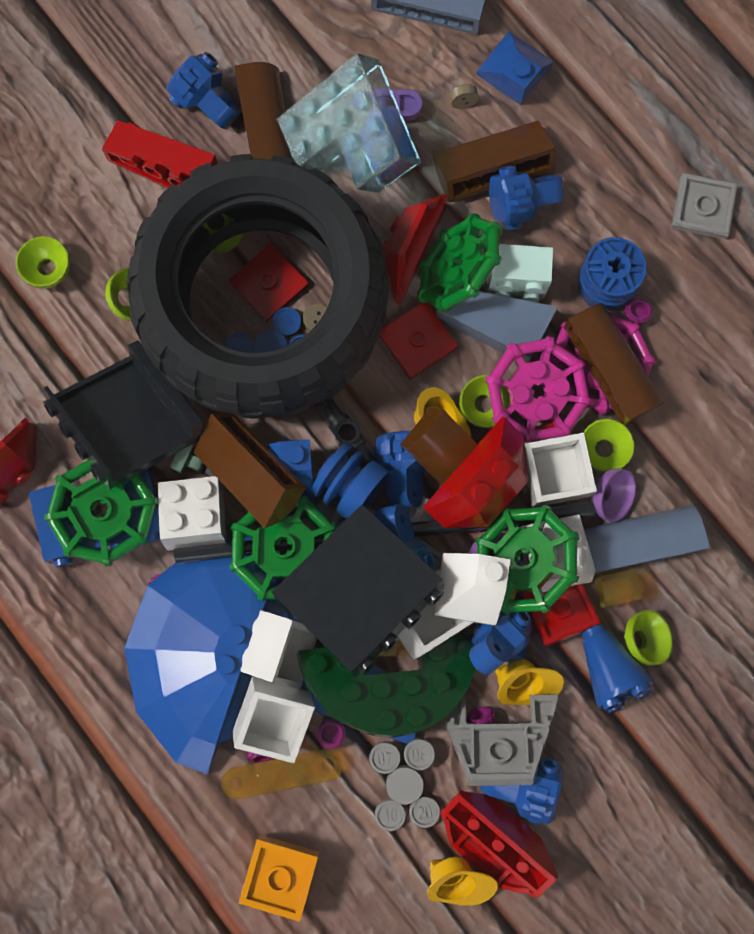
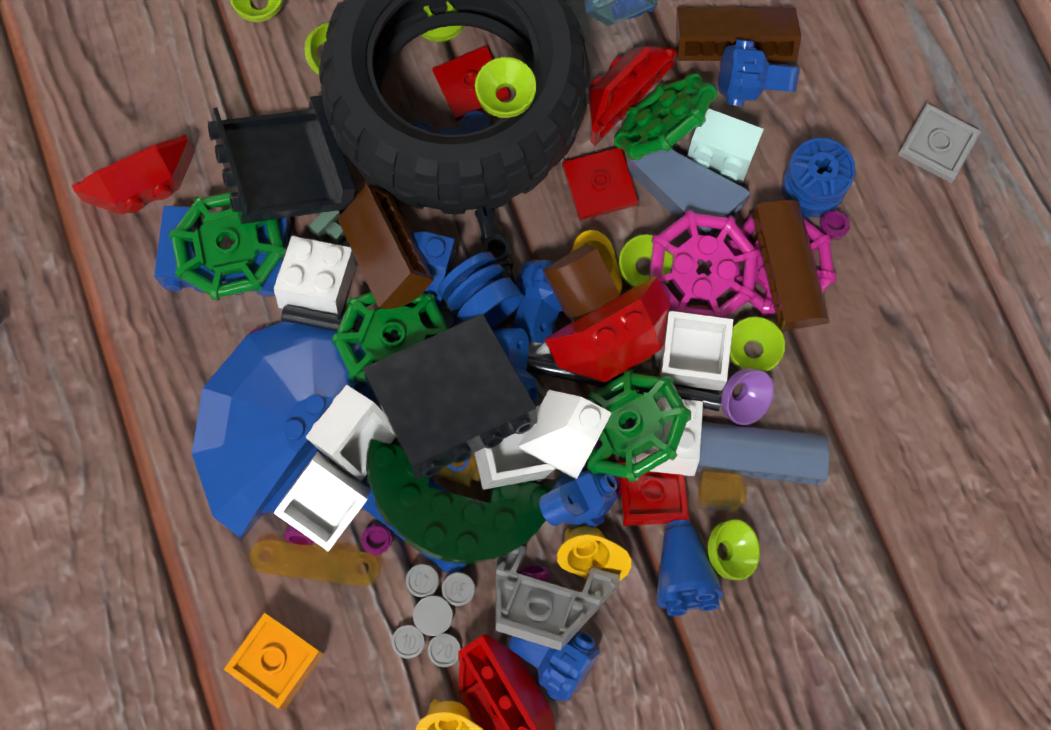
camera: 20 degrees right, 5 degrees down
(314, 278) = (505, 73): none -> lime piece

